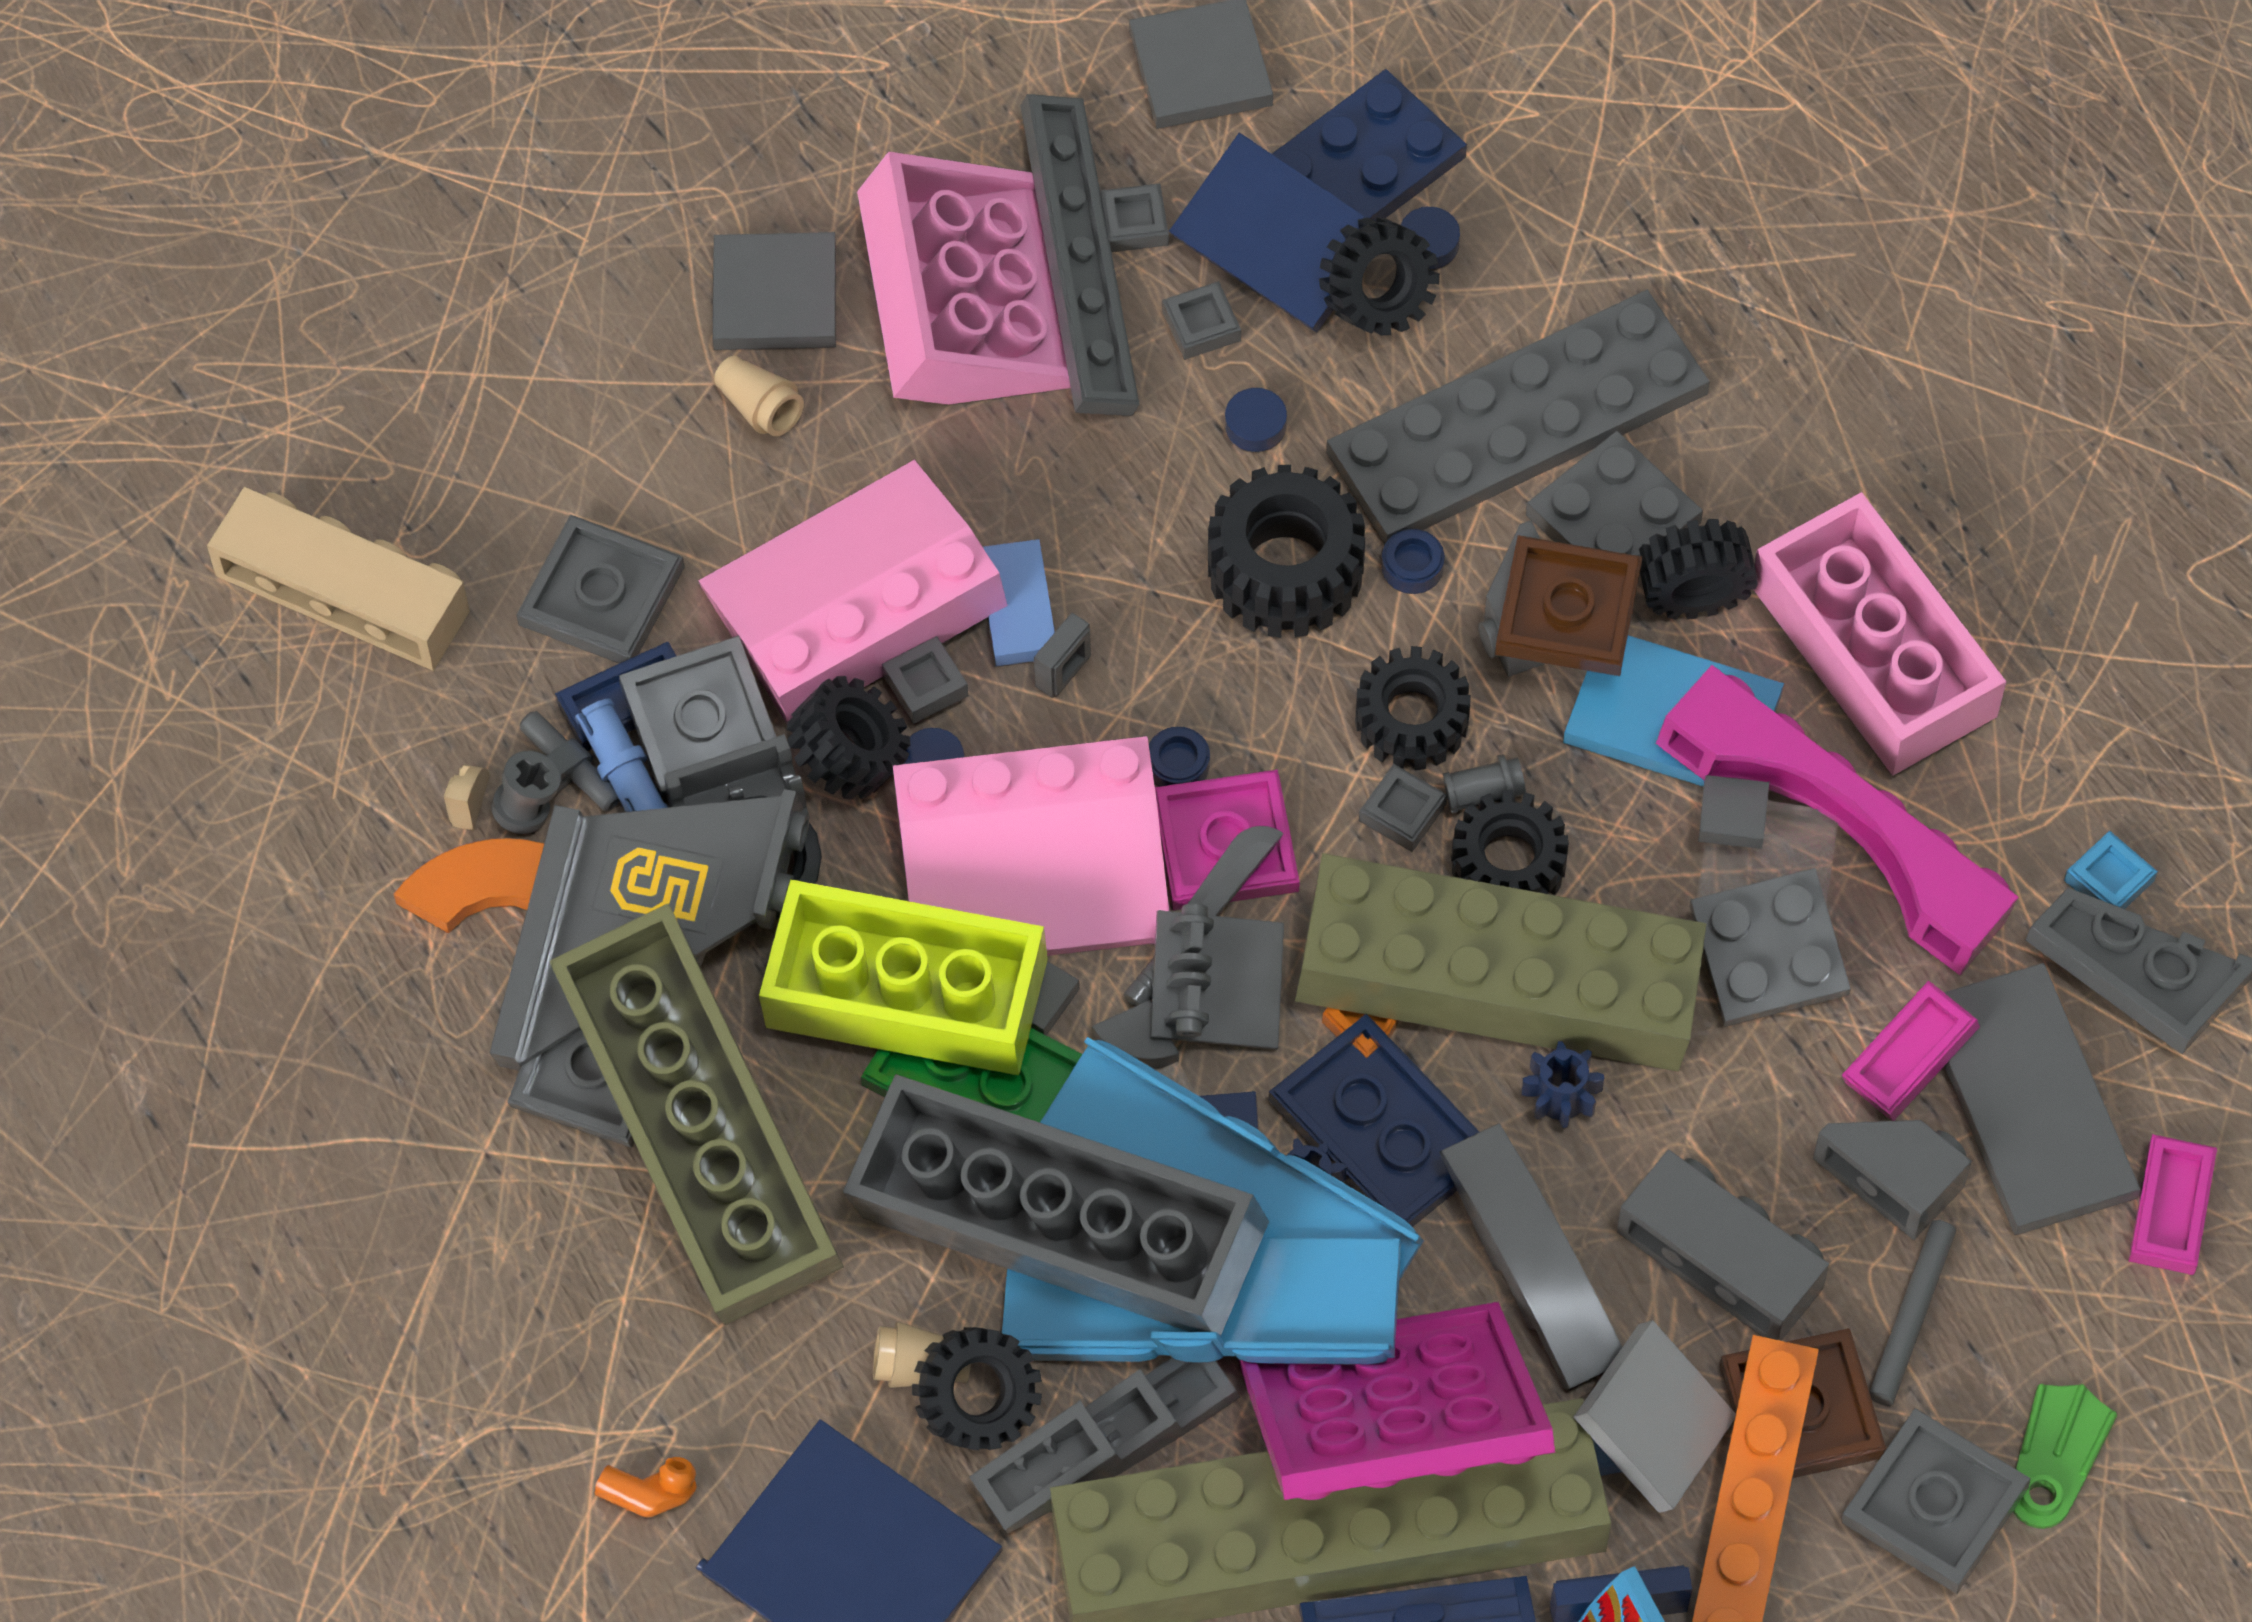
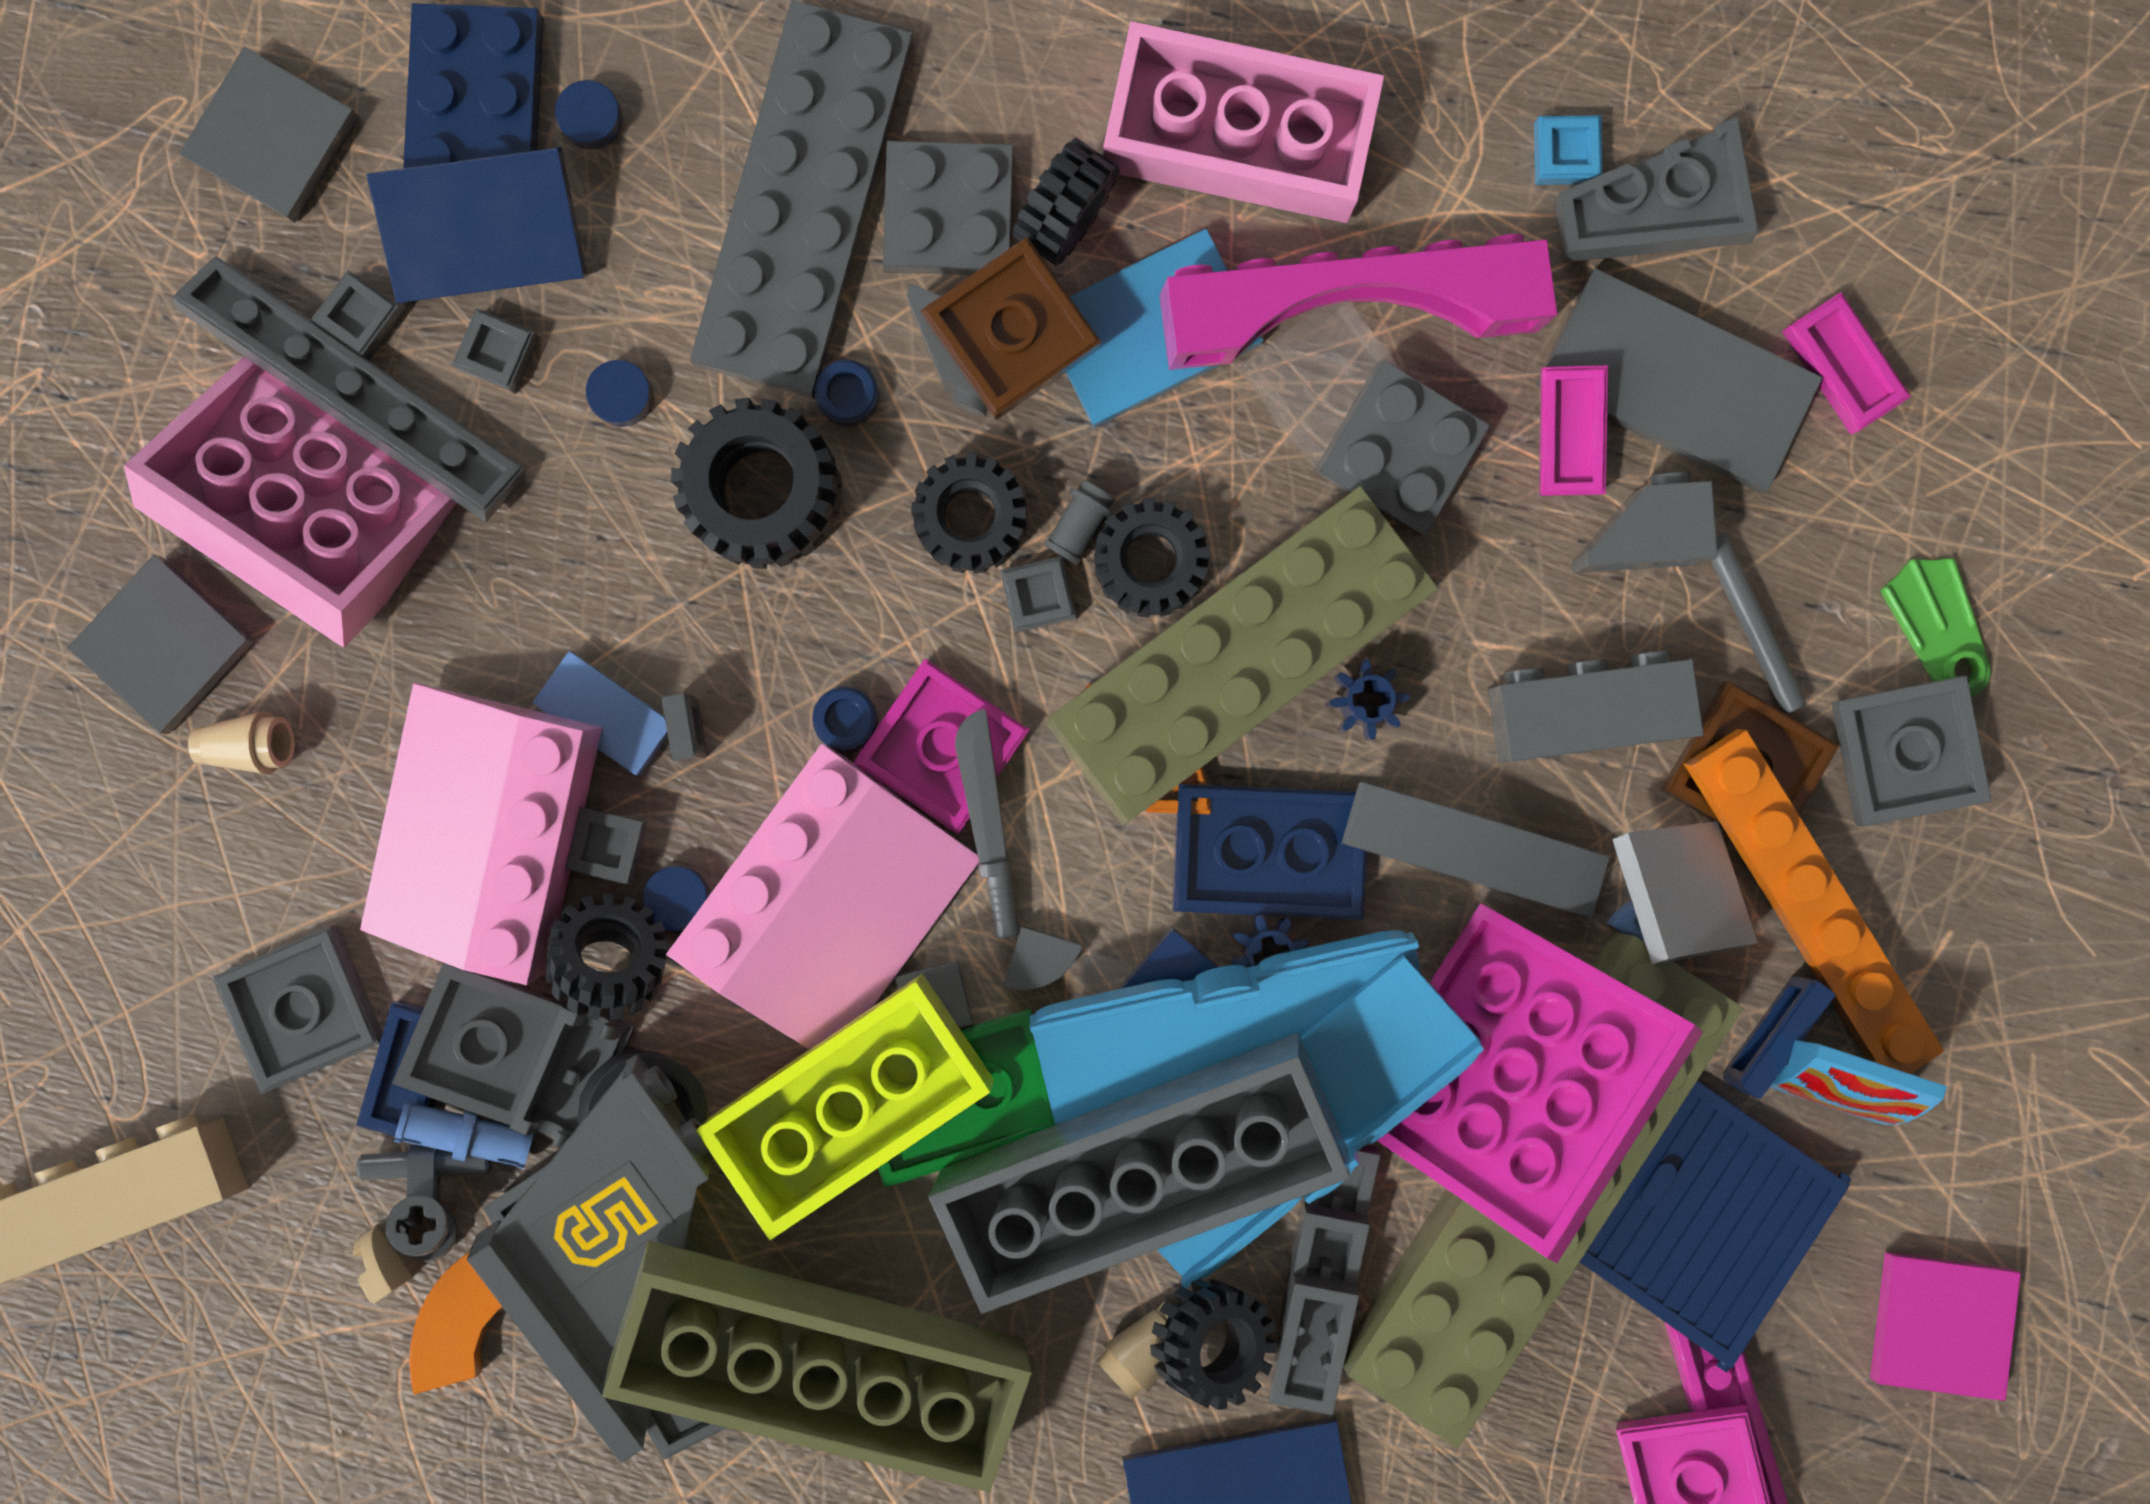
camera: 50 degrees left, 25 degrees up
(1216, 979) = (1054, 867): dark grey hinge -> none
(1350, 264) = (564, 197): black tyre -> none
(1733, 812) = (1277, 369): dark grey tile -> none

